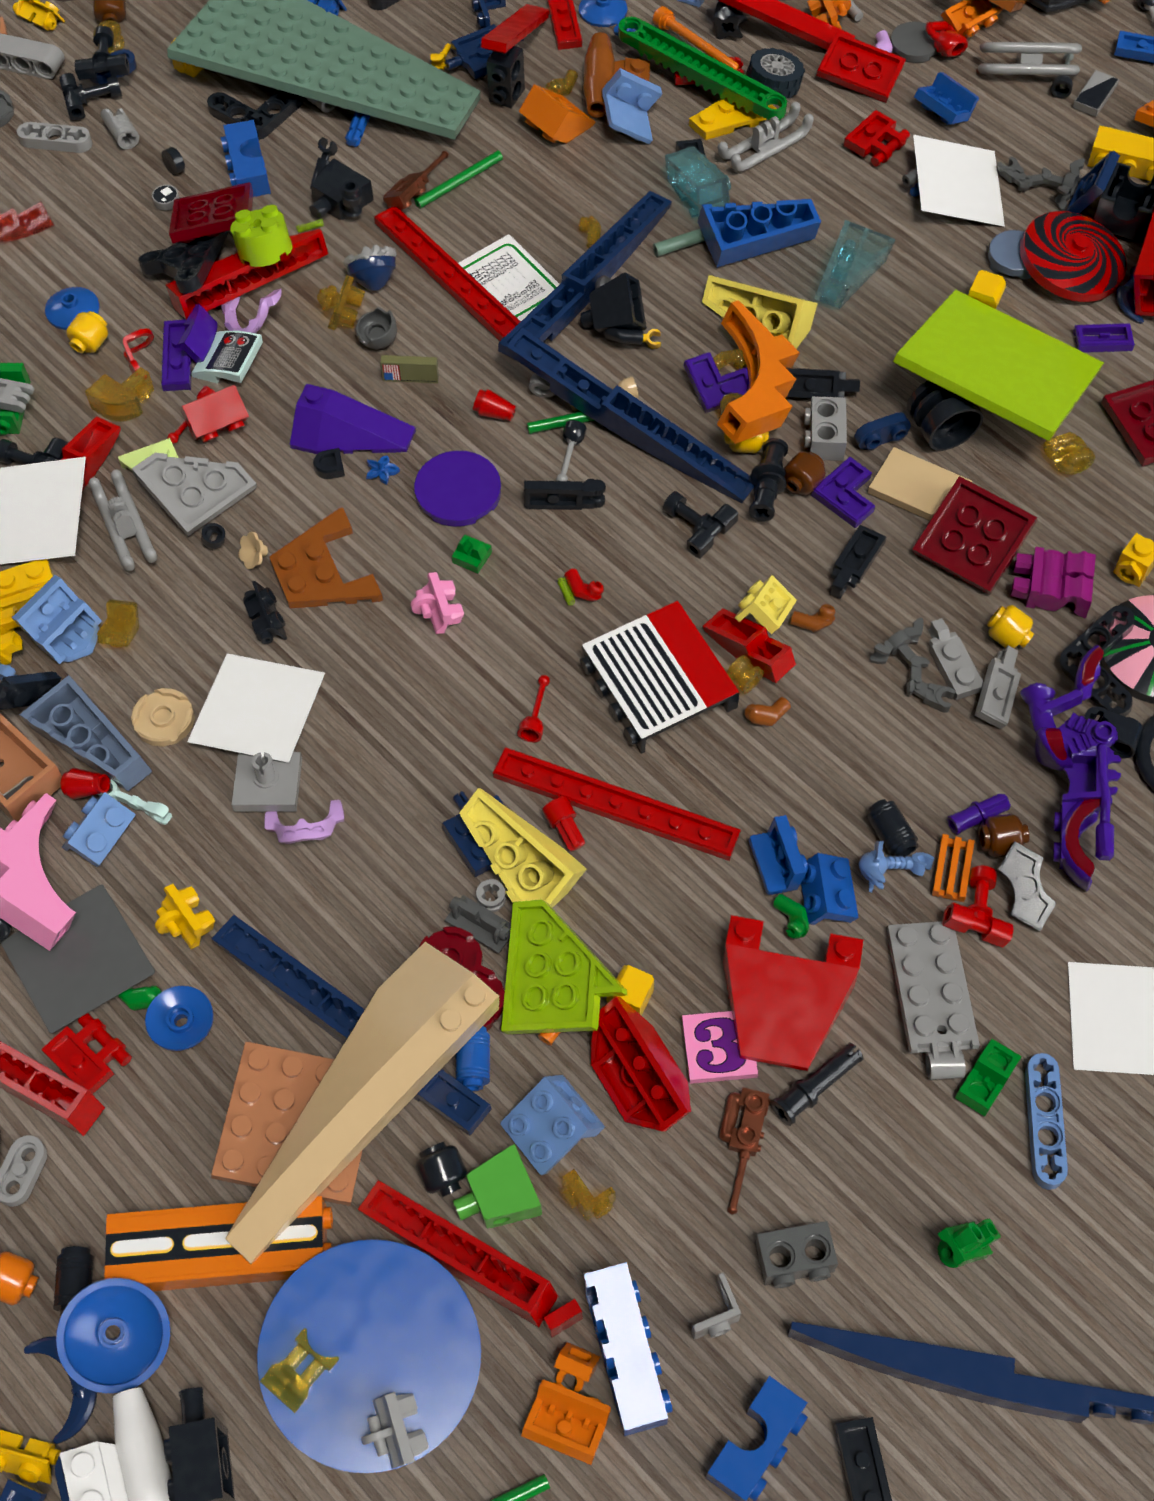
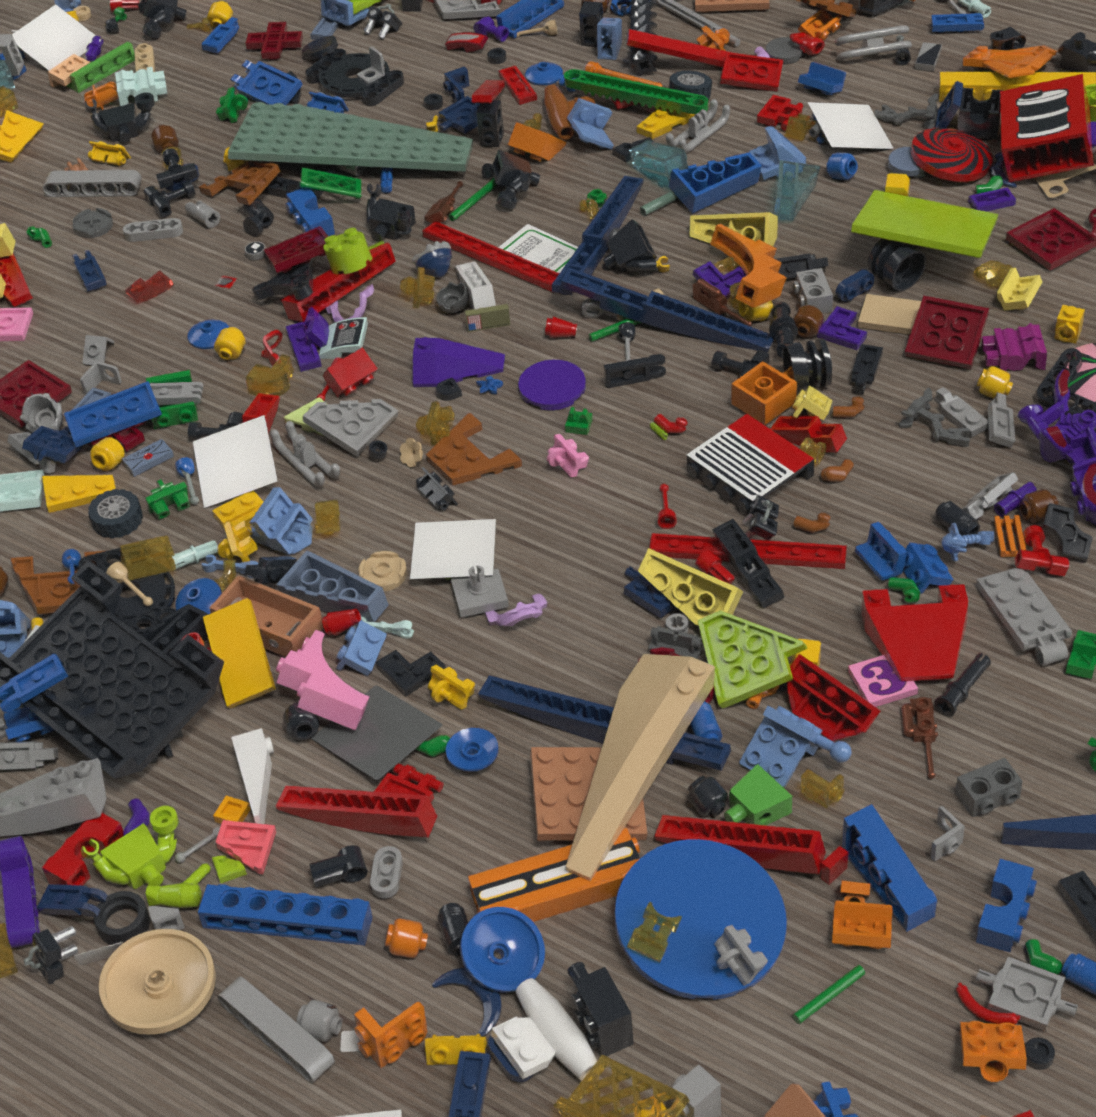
camera: 10 degrees left, 15 degrees down
(117, 235) = (226, 282): none -> sticker
(143, 882) = (408, 676): none -> black tile
(185, 141) = (259, 210): none -> black head
(190, 87) = (250, 176): none -> dark orange wing
(293, 513) = (436, 422): none -> clear yellow hips
(296, 115) = (310, 179): none -> green window
(410, 317) = (477, 284): none -> white slope
(452, 21) = (433, 101): none -> black tile
(509, 158) = (510, 172): none -> black torso
(589, 1110) = (839, 751): none -> medium blue plate
(605, 215) = (598, 196): none -> green plate
(607, 827) = (748, 563): none -> black slope
(641, 776) = (761, 518): none -> black piece
(659, 150) = (622, 151): none -> black tile
(698, 411) = (714, 299): none -> copper piece
(710, 787) = (813, 526): none -> dark orange arm
(714, 570) = (764, 392): none -> orange brick
(778, 544) = (811, 363): none -> black wheel
(850, 202) = (777, 149): none -> medium blue piece
(893, 164) = (798, 126): none -> clear yellow bracket
(926, 241) = (841, 166): none -> blue head
(945, 800) = (987, 496): none -> light grey hinge
(1089, 490) = (1018, 291): none -> light yellow bracket
(1112, 315) = (993, 184): none -> green arm

